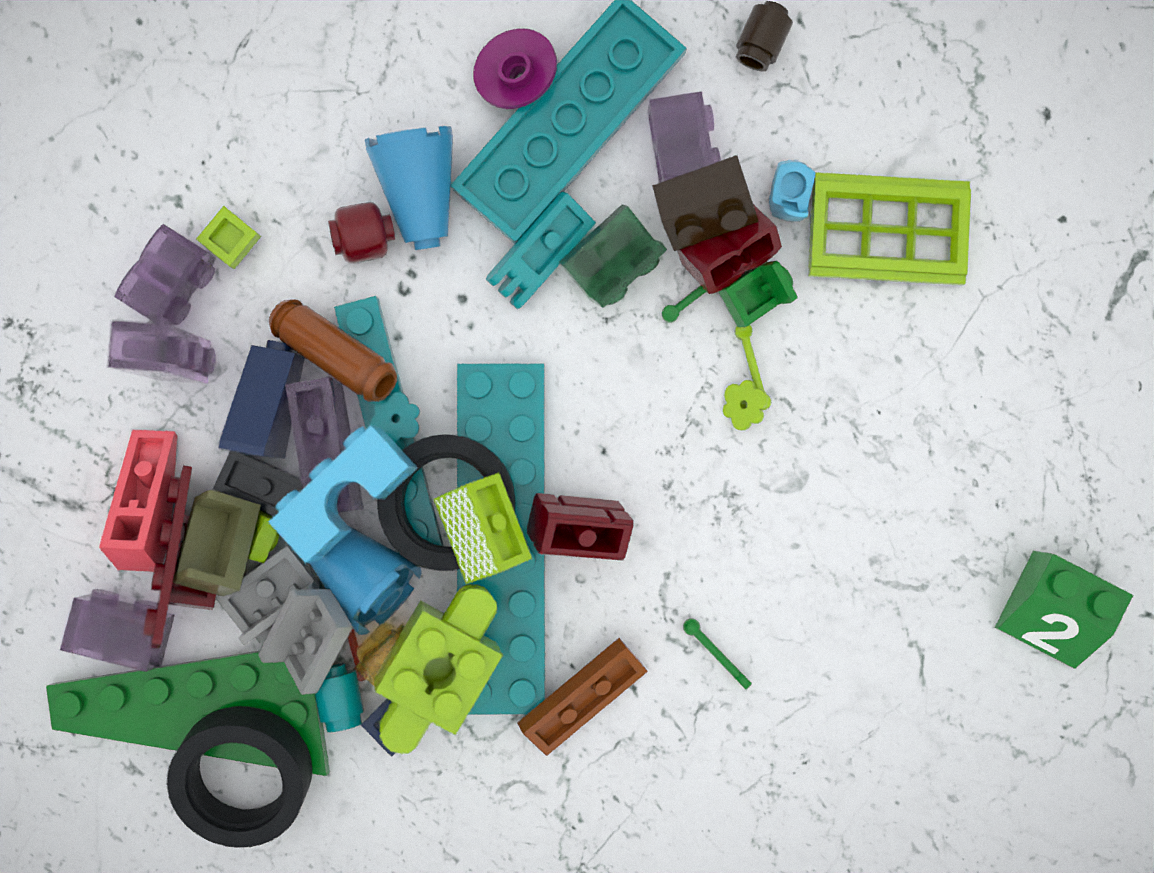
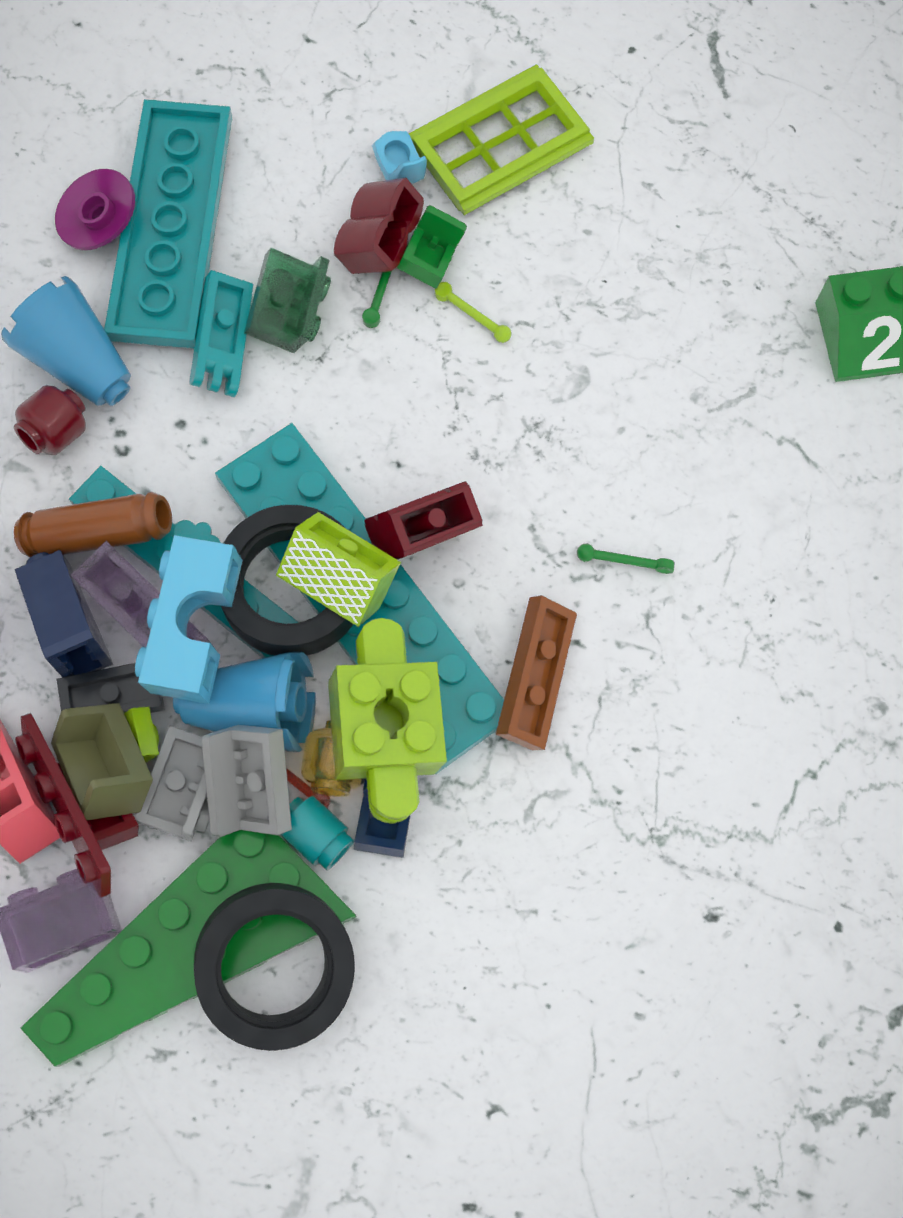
camera: 35 degrees left, 15 degrees down
(681, 134) = (280, 179): clear purple brick -> none
(705, 203) = (334, 199): dark brown brick -> none
(736, 409) = (479, 342): lime plant -> none
(763, 35) = (287, 62): dark brown brick -> none

